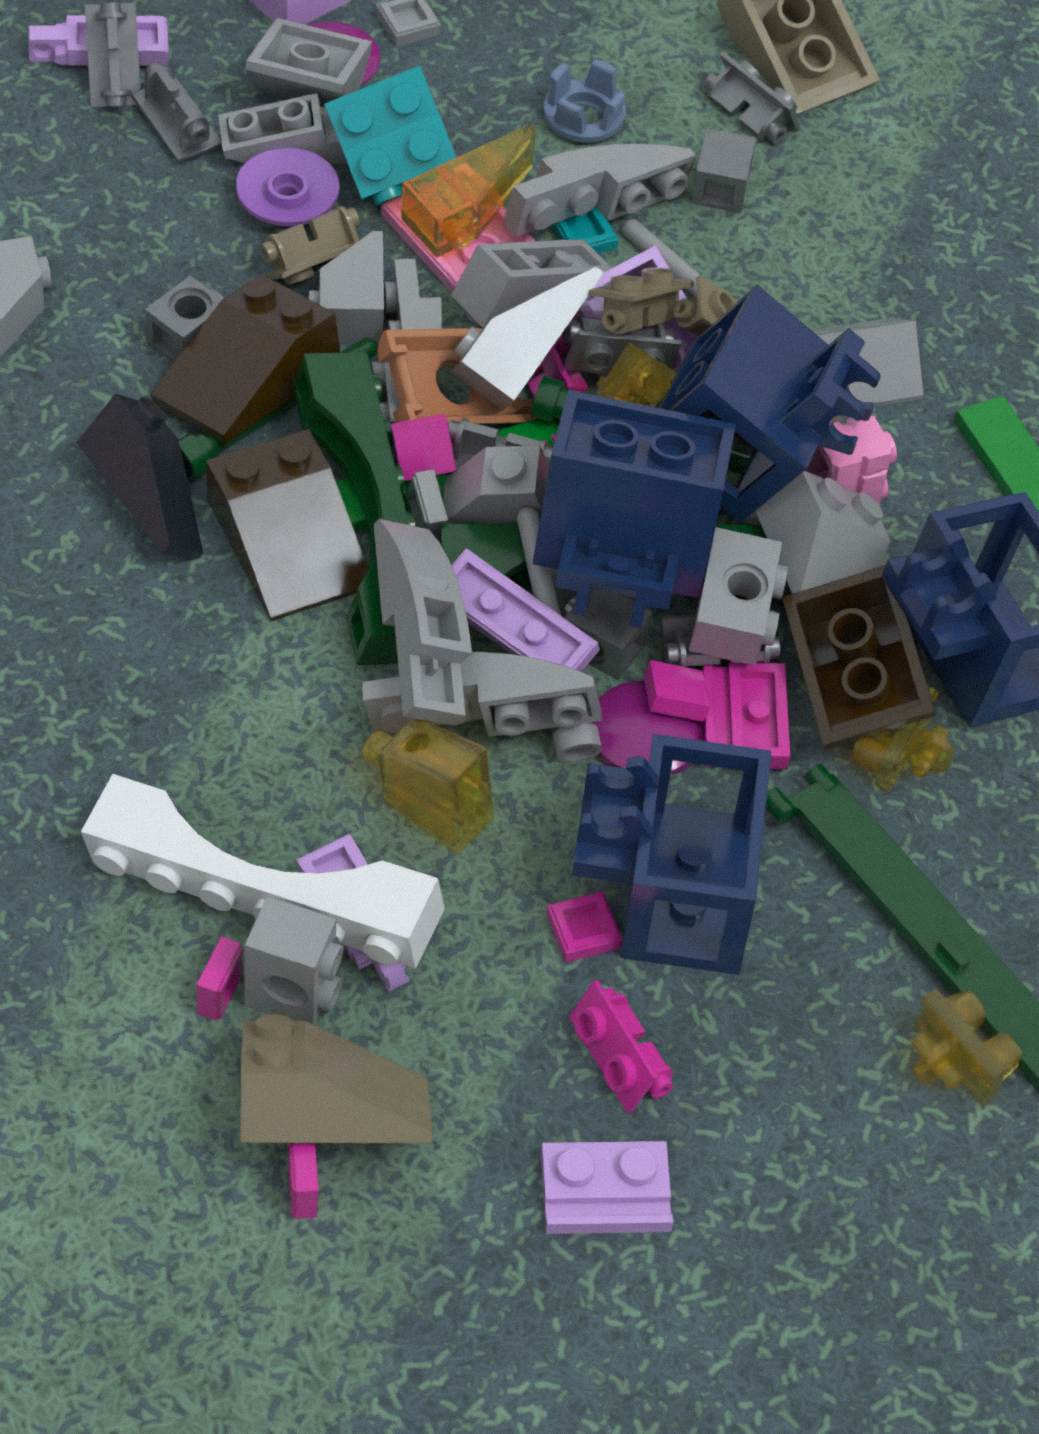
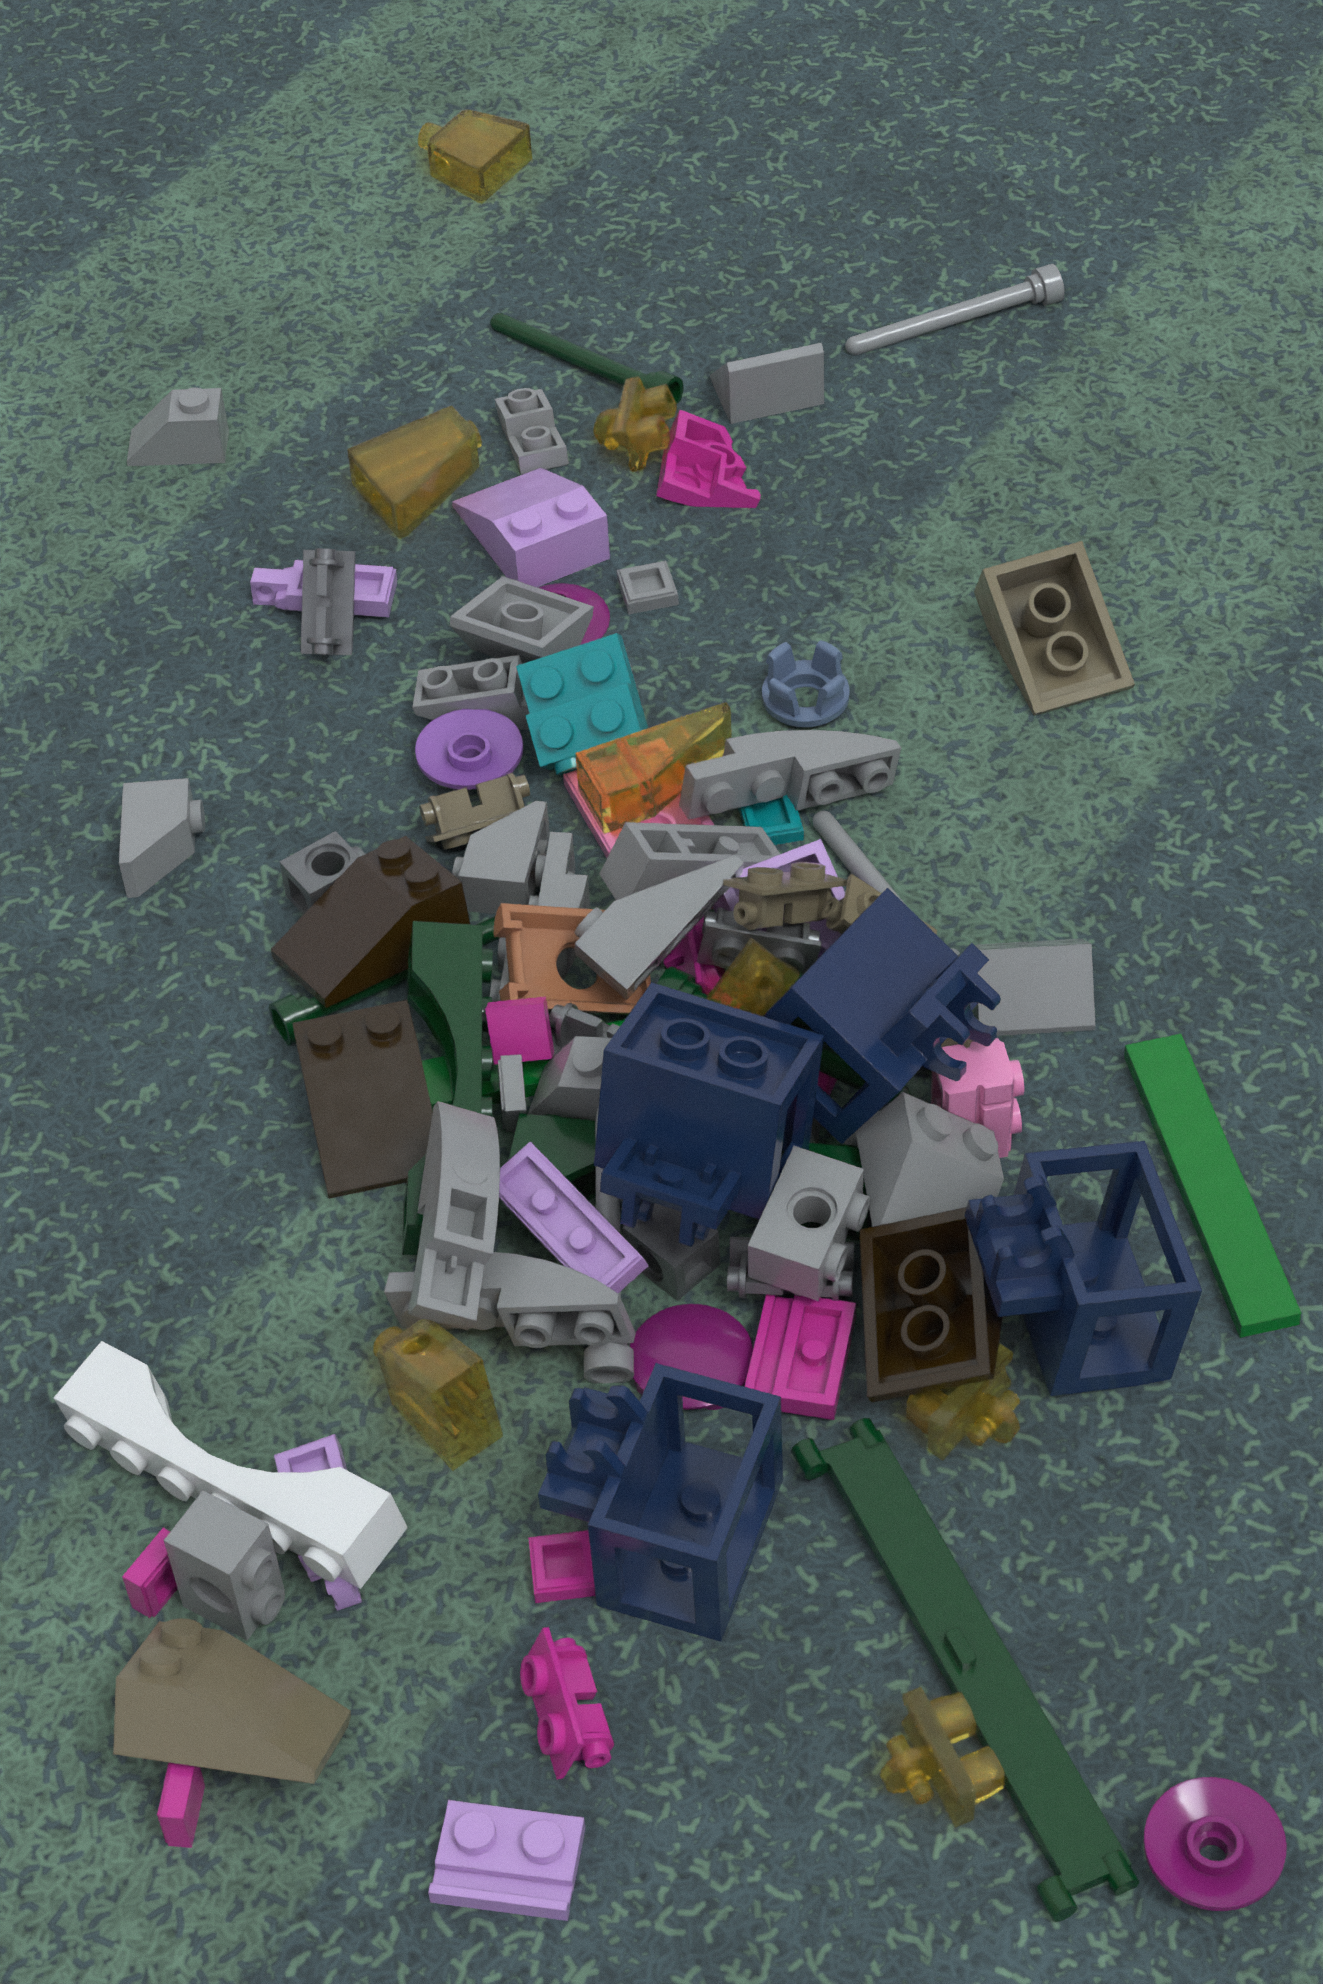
camera: 20 degrees right, 5 degrees down
(146, 471) = (236, 1031): black slope -> none
(174, 114) = (378, 666): flat silver hinge -> none
(676, 691) = (727, 1319): dark pink tile -> none
(723, 170) = (933, 767): flat silver brick -> none
(741, 86) = (1001, 707): flat silver hinge -> none

